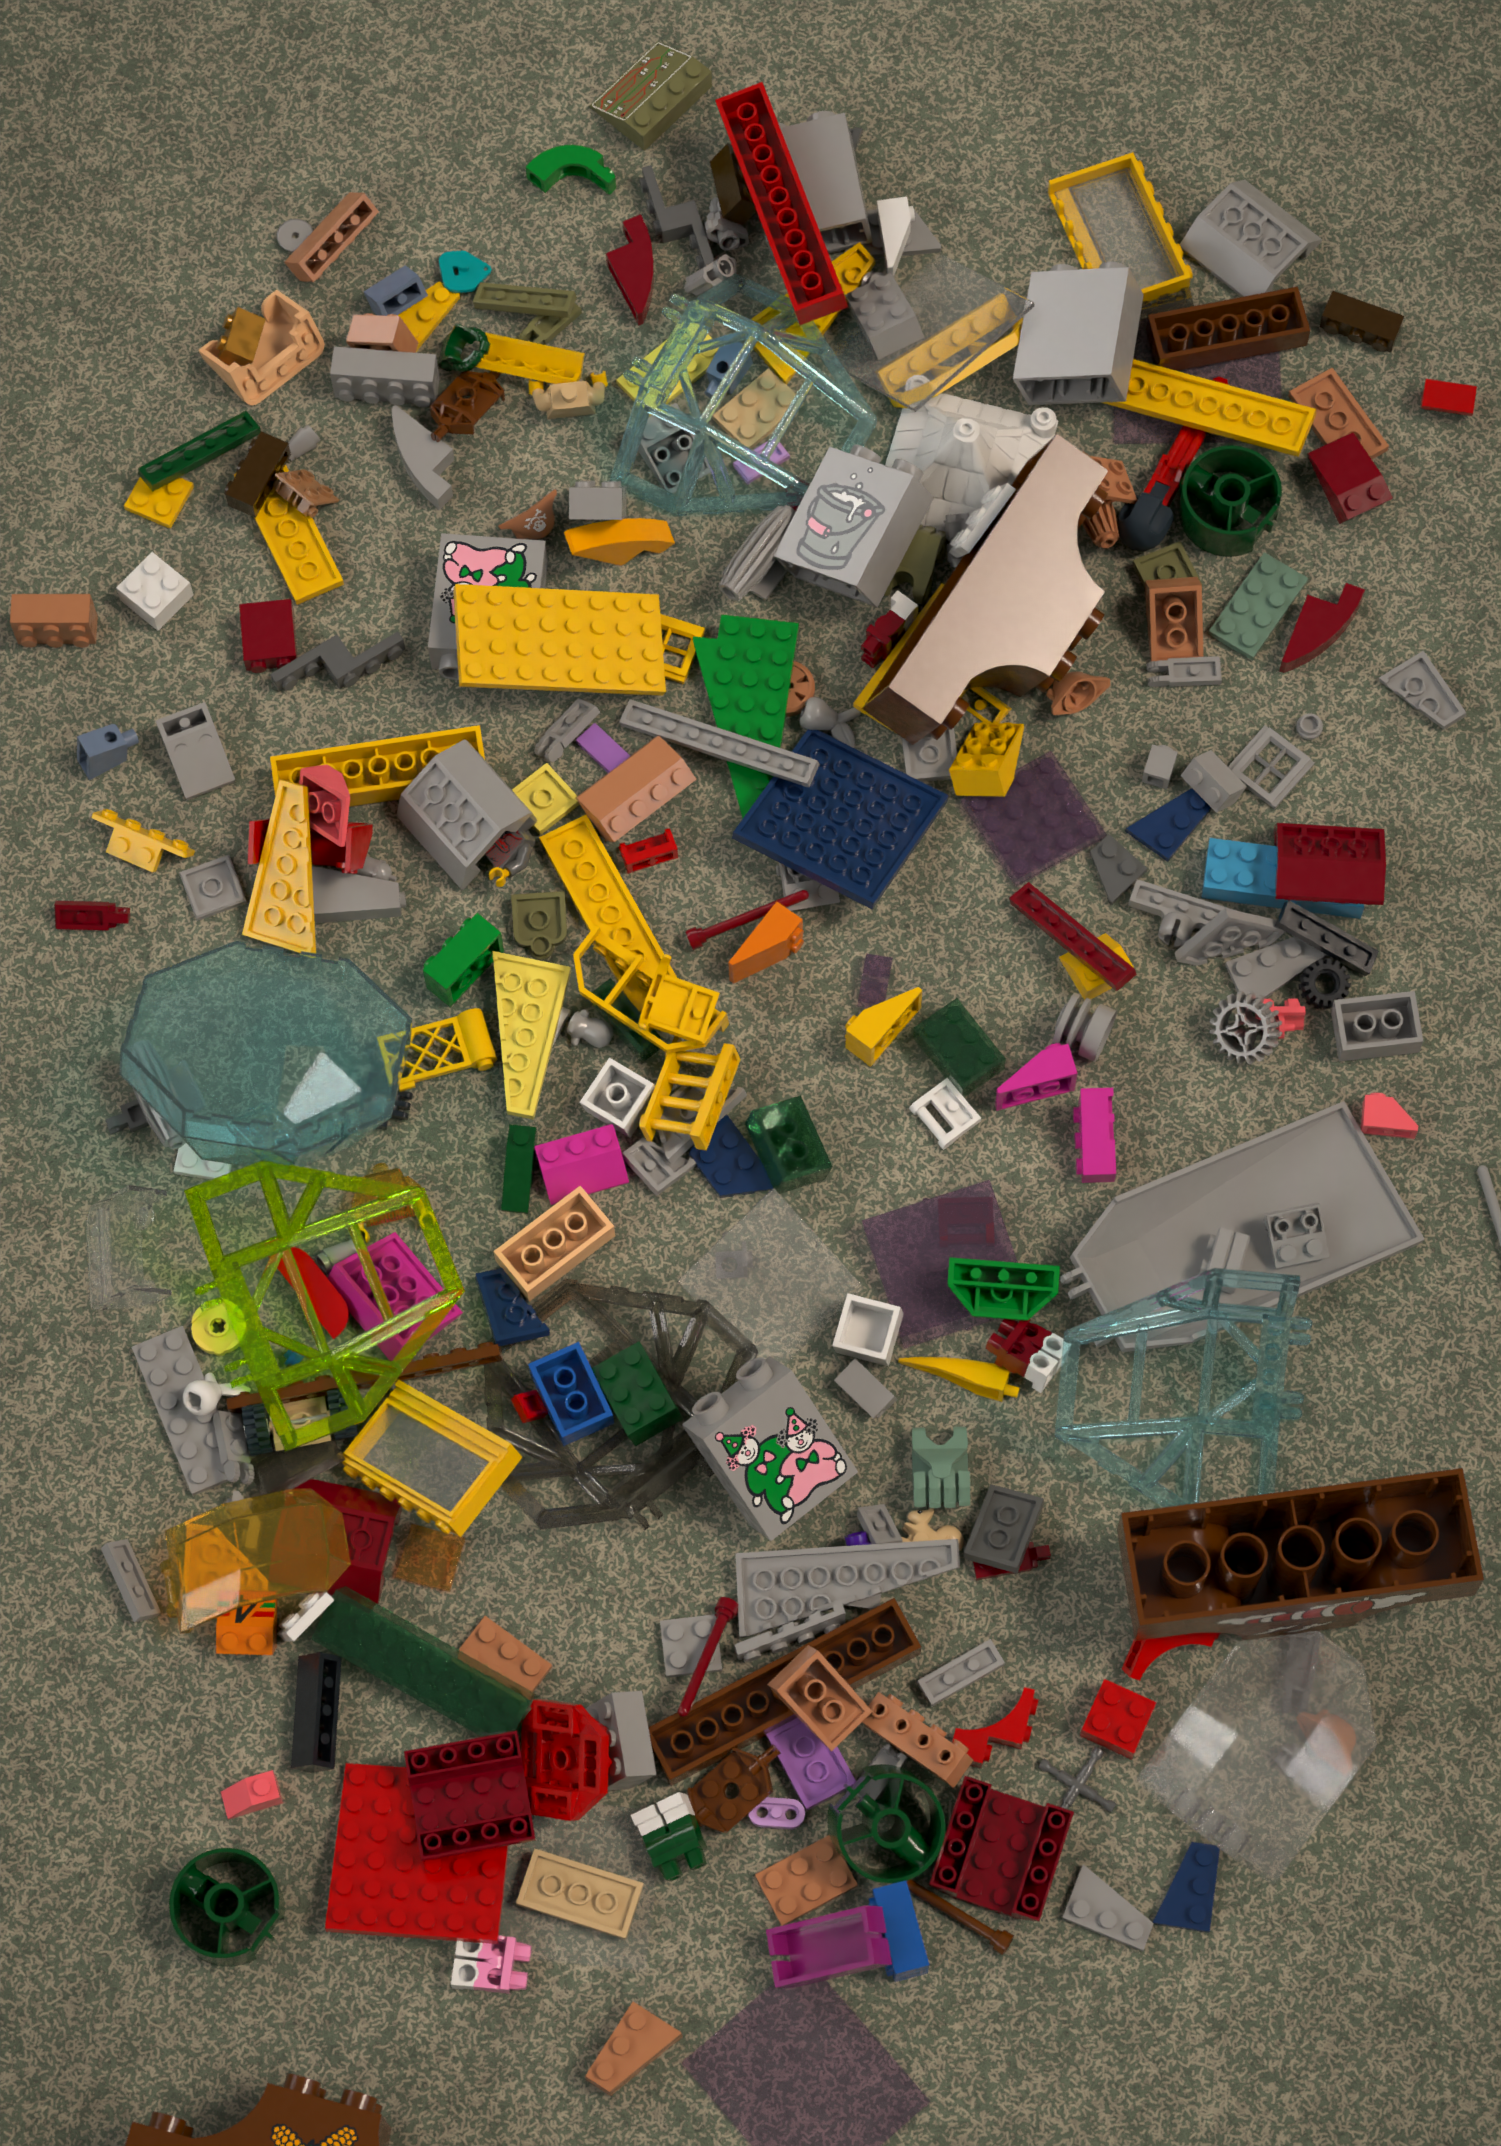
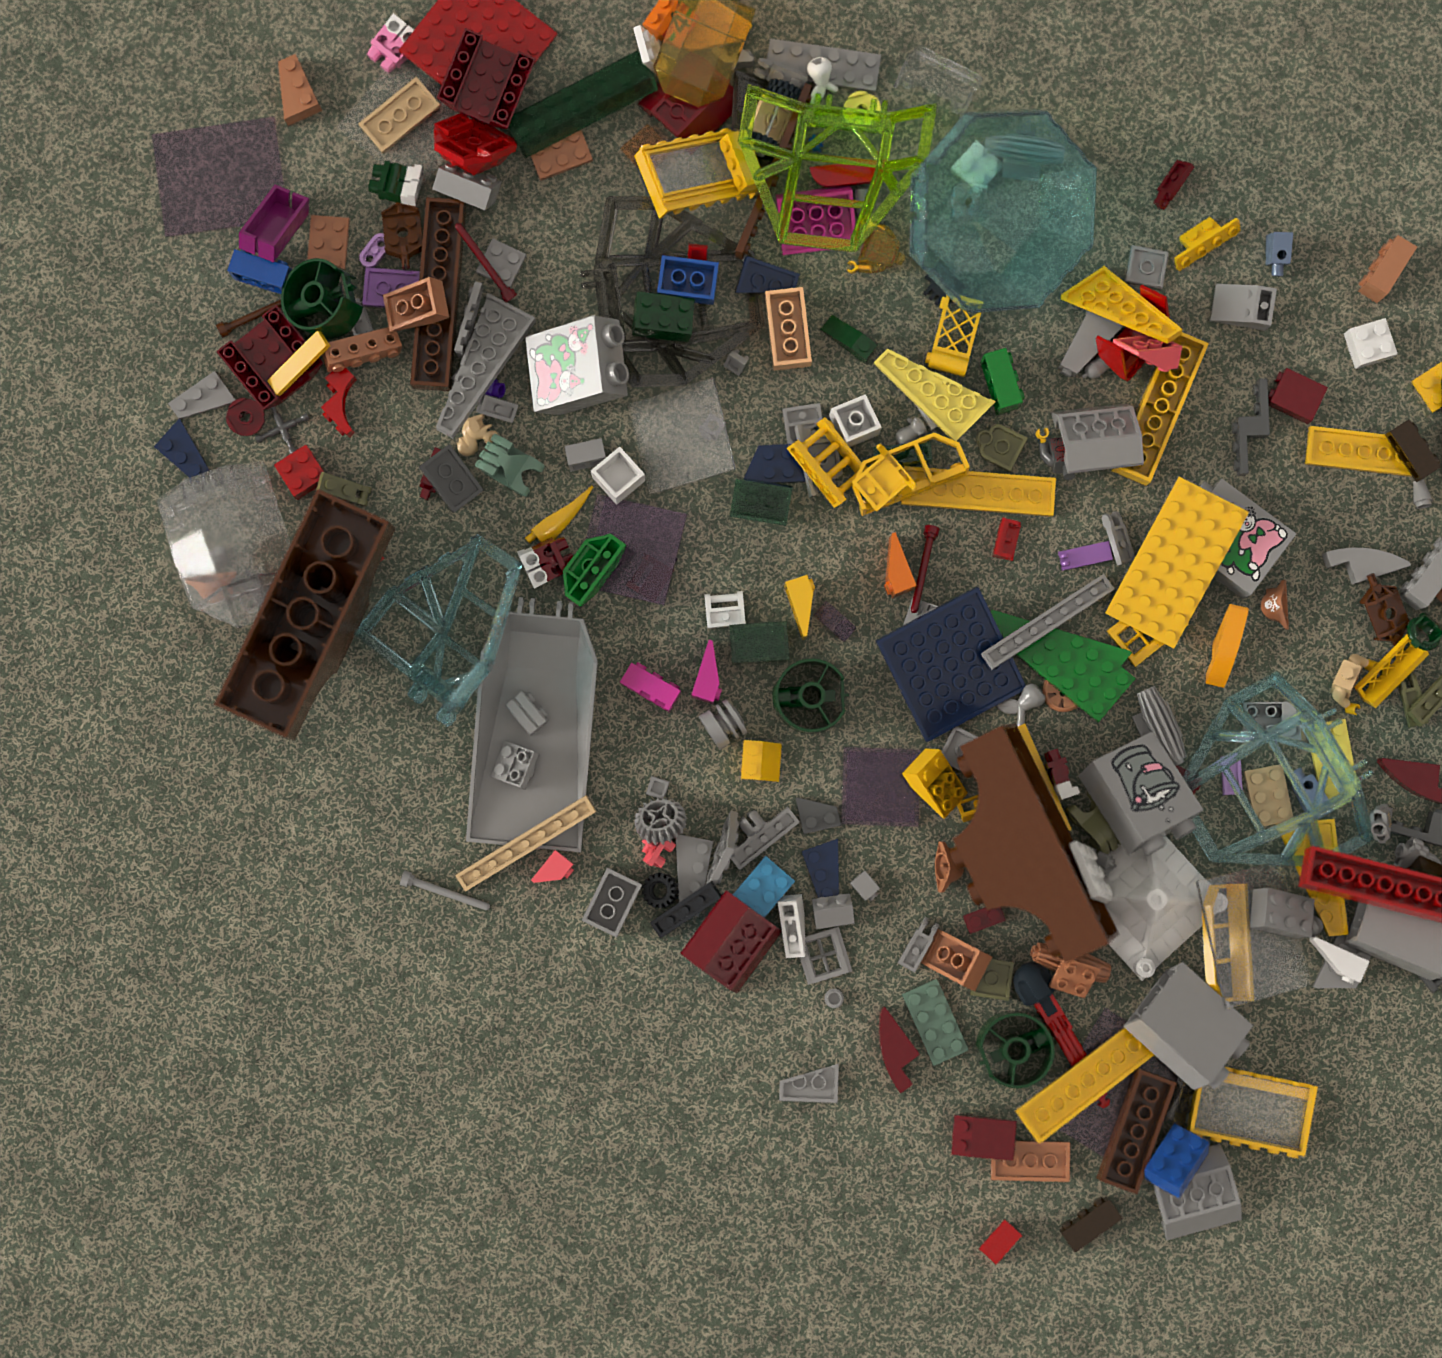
camera: 120 degrees right, 15 degrees up
(303, 491) = (1384, 475): medium nougat hinge -> none
(316, 1712) = (594, 30): black brick -> none
(384, 1420) = (736, 163): none -> yellow brick
(546, 797) = (1081, 497): light yellow plate -> none
(583, 1160) = (828, 375): dark pink slope -> none
(598, 502) = (1257, 643): light grey brick -> none
(634, 1278) = (736, 362): none -> light grey tile
(635, 789) = (1049, 553): nougat slope -> none
(961, 1672) = (386, 403): light grey plate -> none
(987, 1799) = (298, 363): none -> yellow tile
(993, 964) = (792, 696): none -> dark green animal
(1072, 936) = (783, 753): dark red plate -> none
(1100, 1853) = (255, 421): none -> dark red plate
(1105, 1651) = (343, 489): none -> olive plate
(1113, 627) = (982, 919): none -> dark red plate
(1207, 1062) = (657, 787): none -> light grey tile
(1231, 268) = (1176, 1160): none -> blue brick
(1261, 813) = (793, 925): none -> white slope
(1379, 1164) = (525, 843): none -> tan plate

